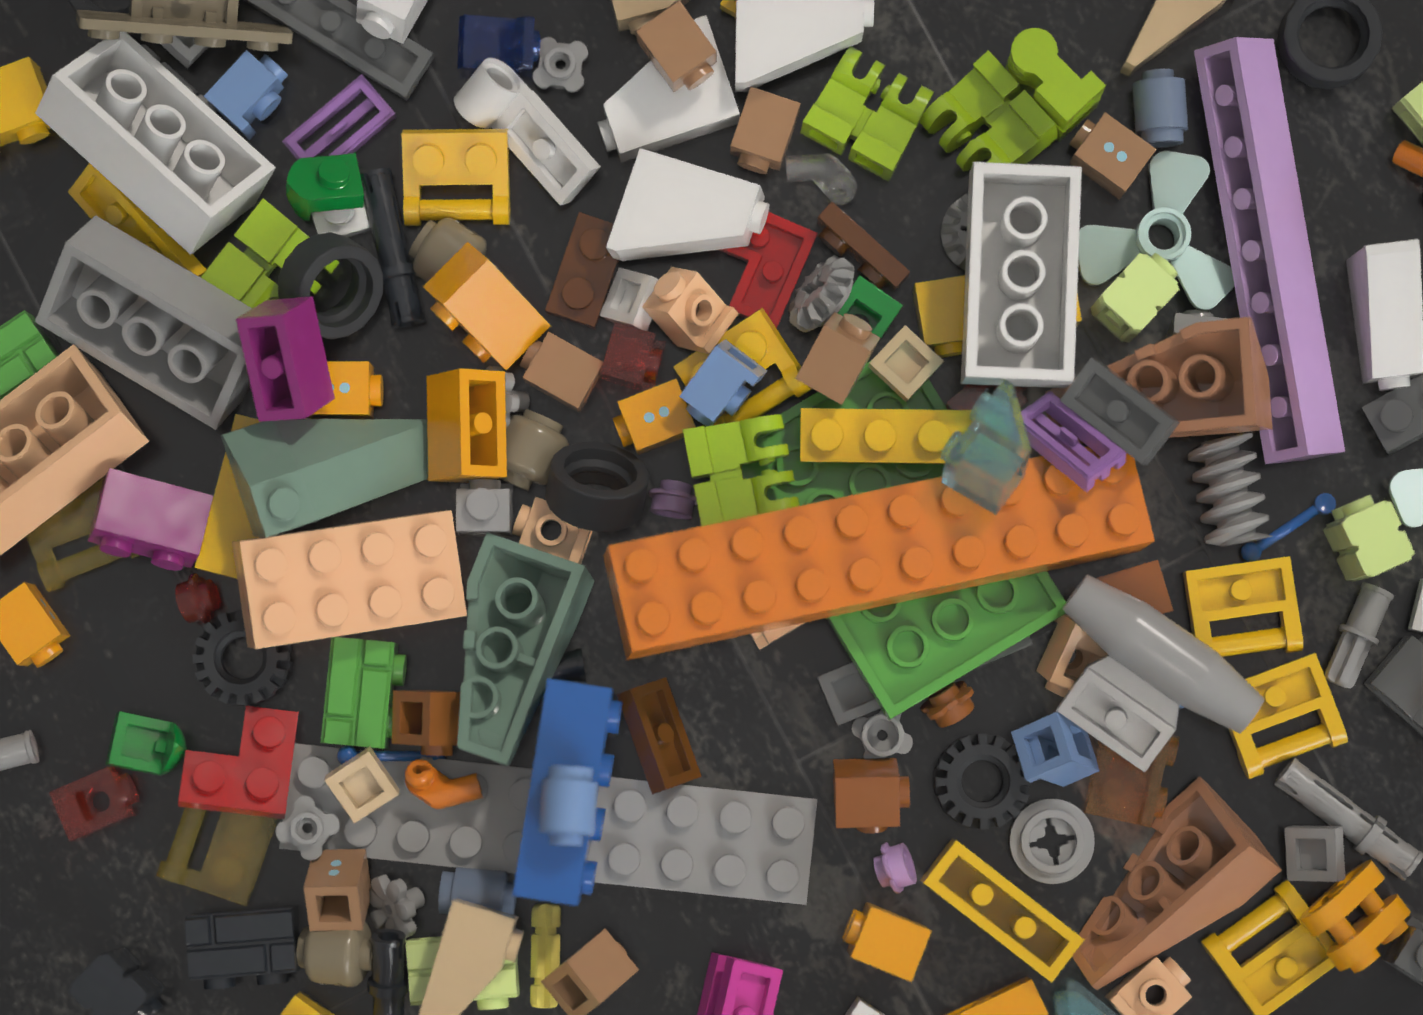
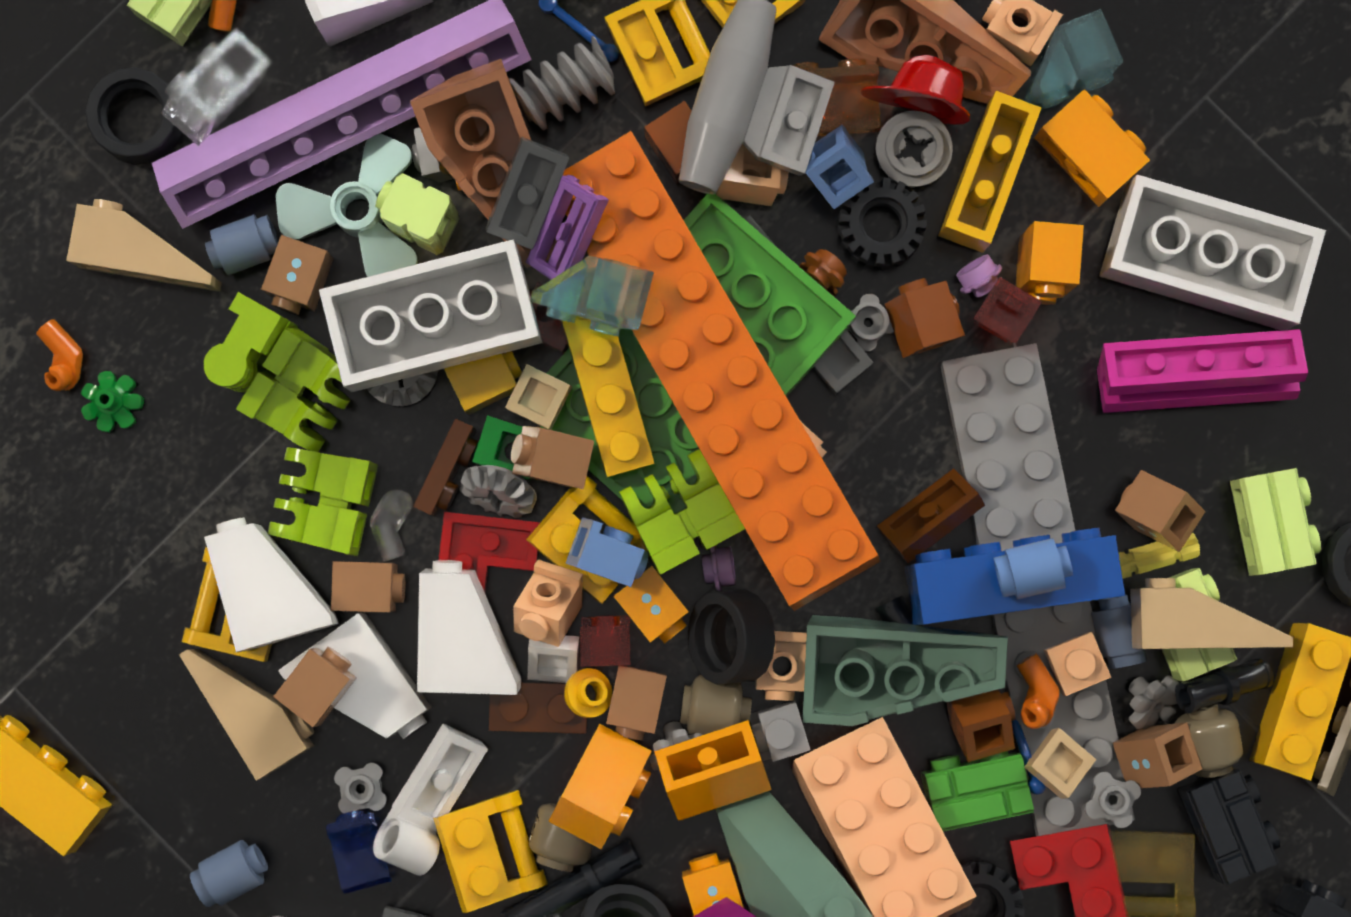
camera: 110 degrees left, 0 degrees up
(458, 837) = (1077, 663): none -> light nougat plate
(590, 310) = (576, 696): none -> yellow plate
(846, 880) = (1007, 312): none -> clear red brick
(1113, 874) = (925, 86): none -> red piece
(1332, 127) = (216, 86): none -> clear brick

